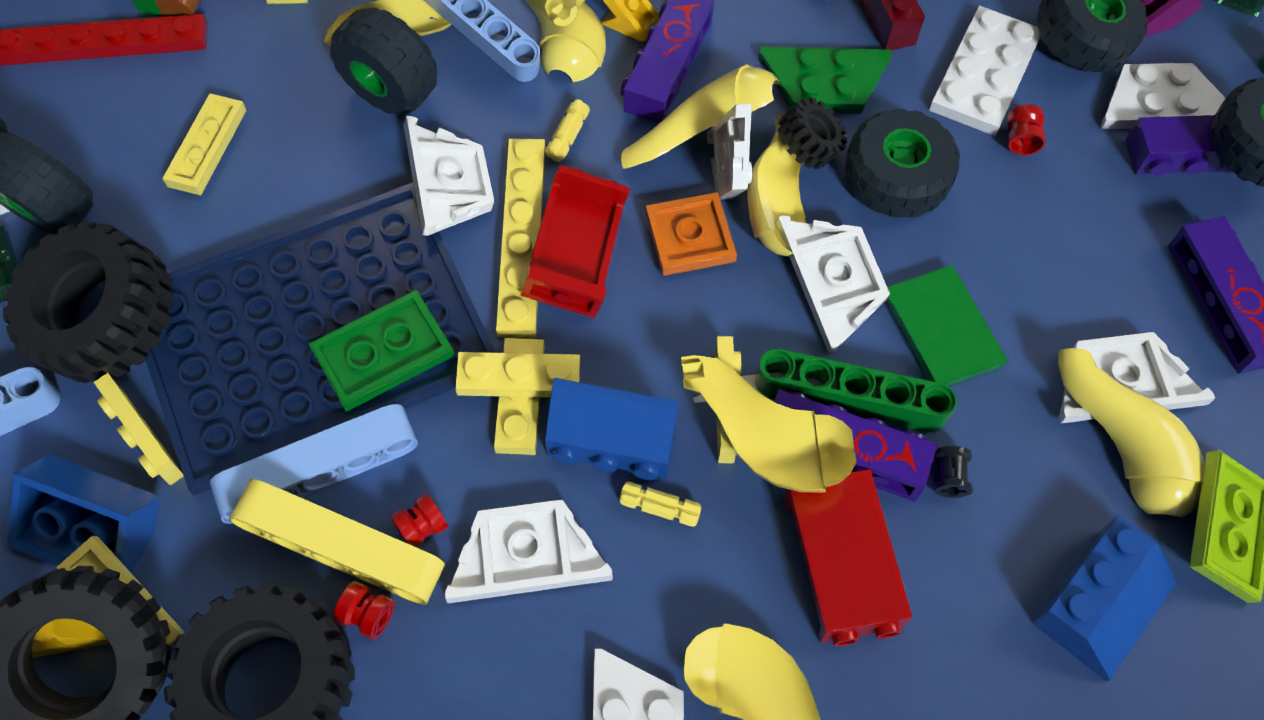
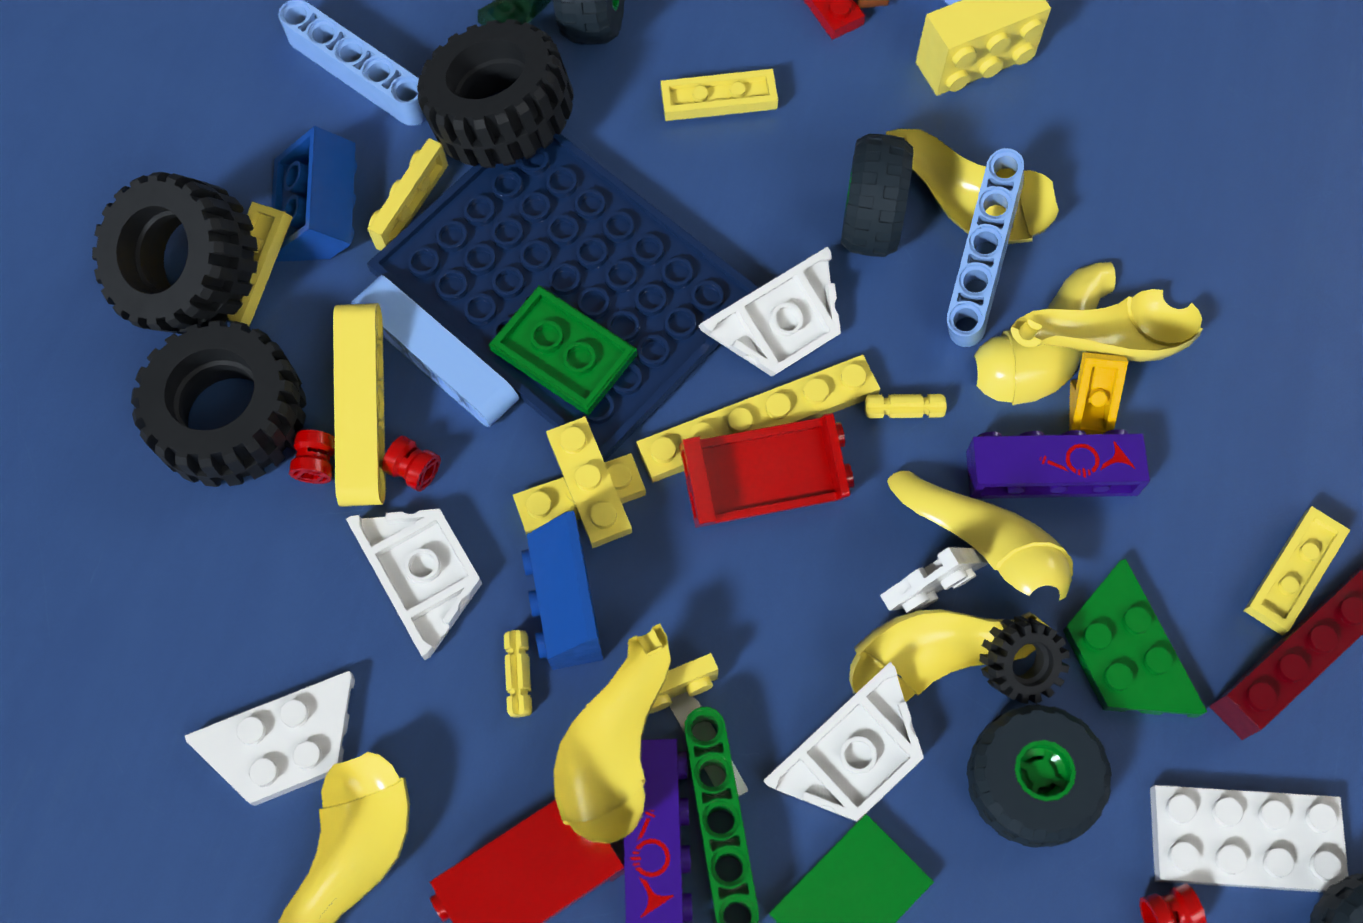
camera: 70 degrees right, 5 degrees up
(690, 234) = (835, 580): orange plate -> none

